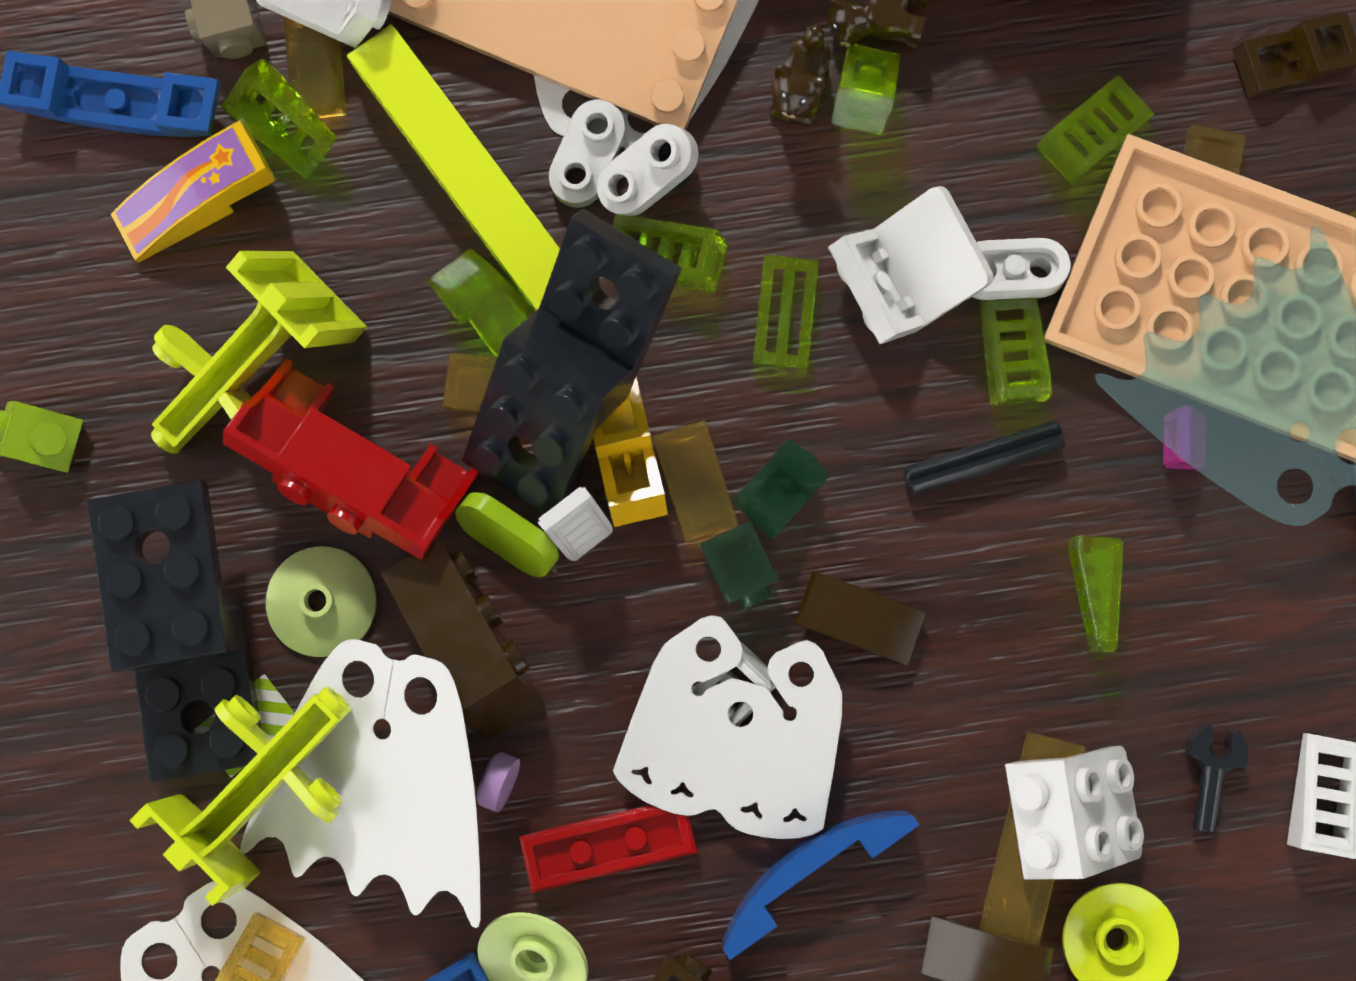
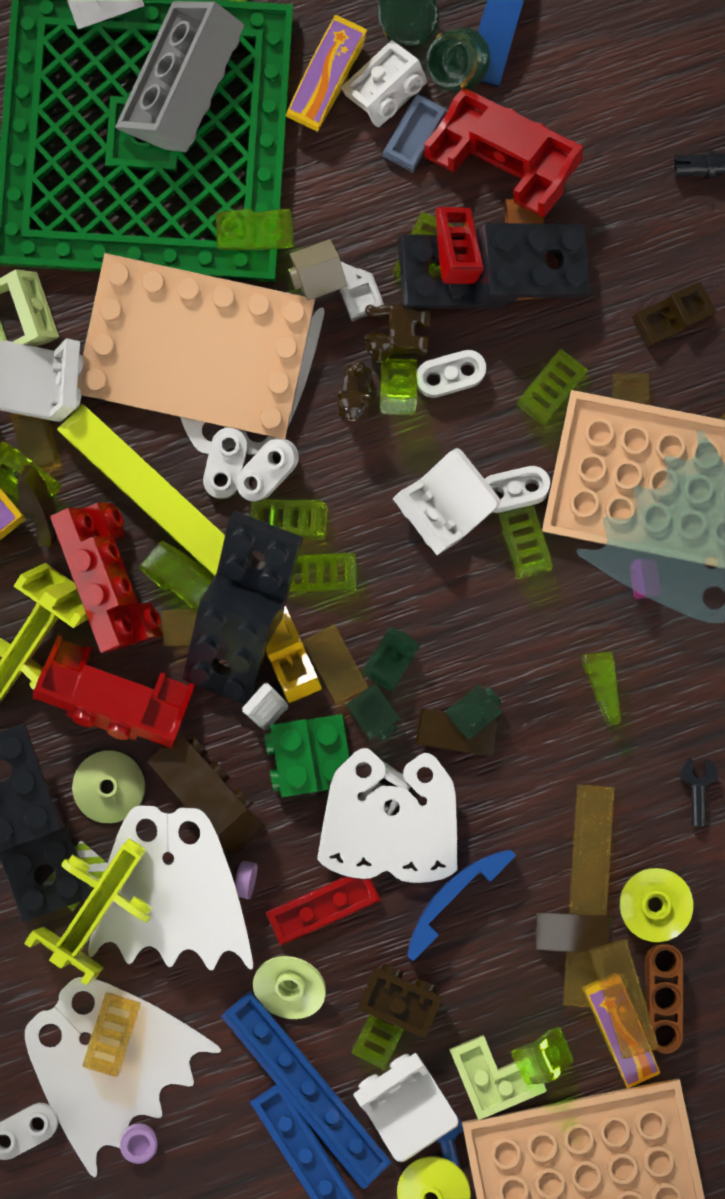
camera: 15 degrees left, 0 degrees up
(292, 145) = (37, 500): none -> dark brown slope
(365, 283) = (101, 578): none -> red bracket
(507, 534) = (221, 721): lime tile -> none
(626, 608) = (306, 754): none -> green plate
(721, 324) = (332, 586): none -> clear neon green slope
(780, 358) = (375, 574): clear neon green tile -> none
(894, 591) = (474, 711): none -> clear green bracket
(945, 80) = (449, 372): none -> white plate
(983, 457) = (517, 614): black axle -> none
(1075, 814) = (614, 829): white bracket -> none

